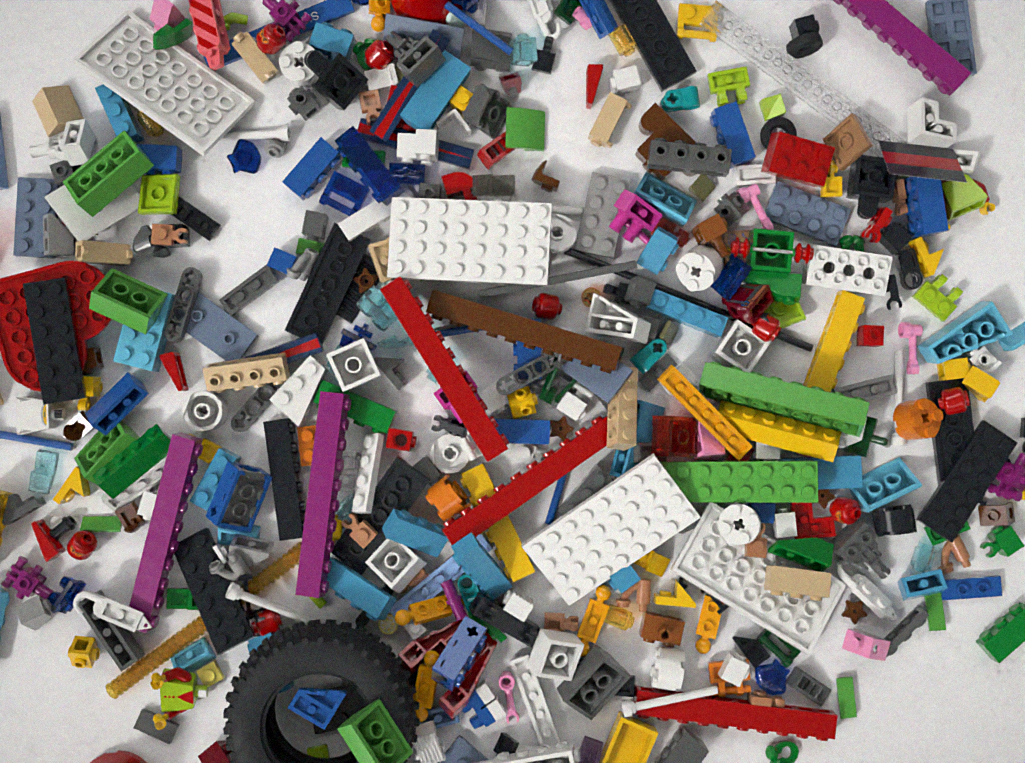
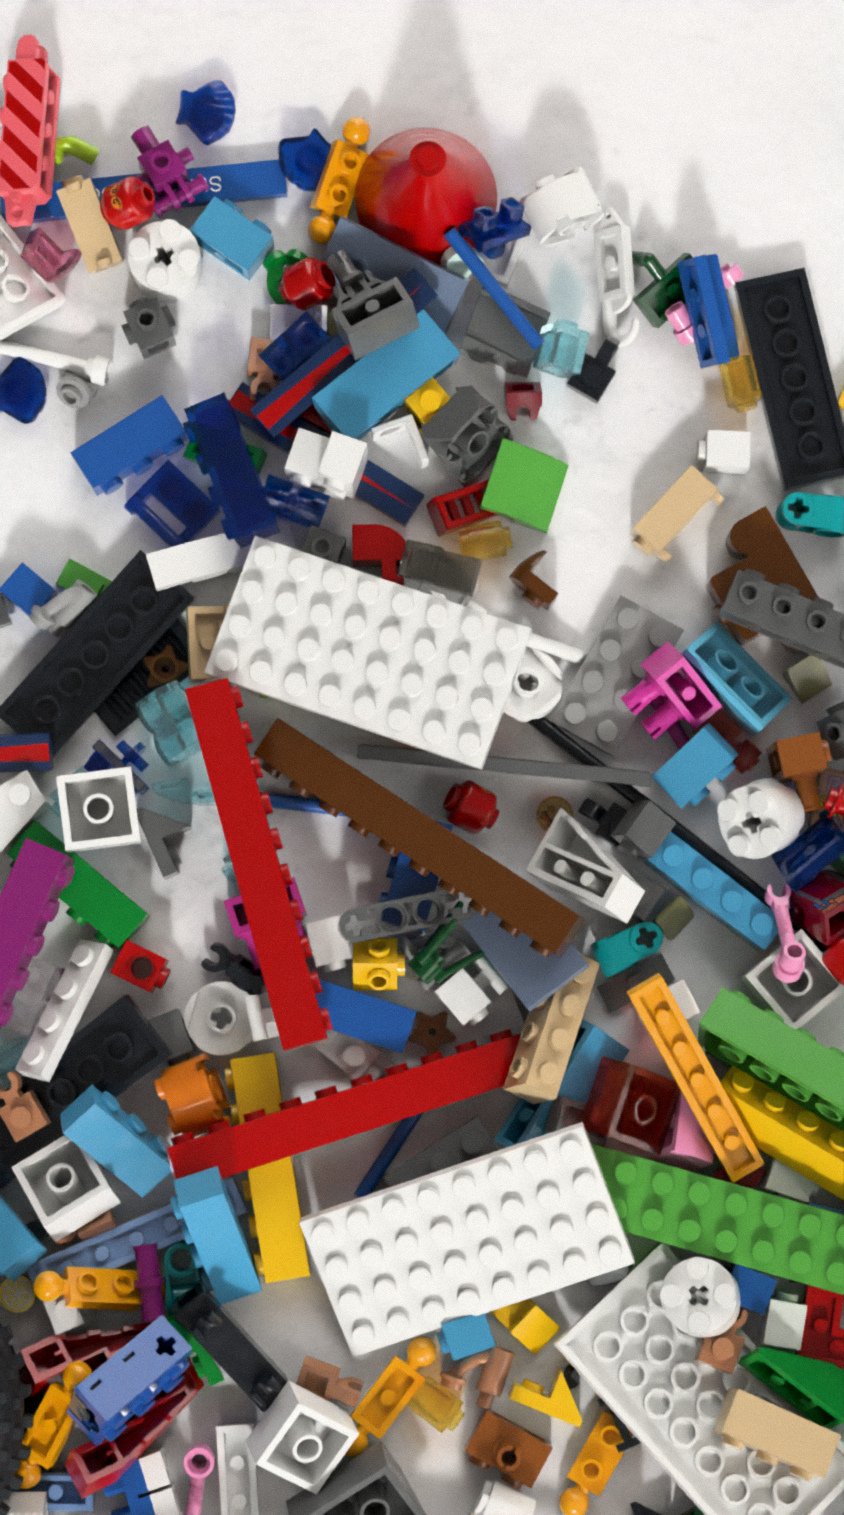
camera: 10 degrees right, 5 degrees down
(237, 81) = (47, 257): none -> clear pink plate
(314, 225) = (104, 545): dark grey brick -> none
(334, 77) = (217, 301): black brick -> none
(382, 89) = (294, 345): none -> clear blue hips
(513, 164) = (485, 540): none -> clear yellow brick
(517, 604) = (261, 1324): white brick -> none
(593, 76) = (669, 432): red slope -> none
(736, 338) = (790, 960): none -> bright pink brick

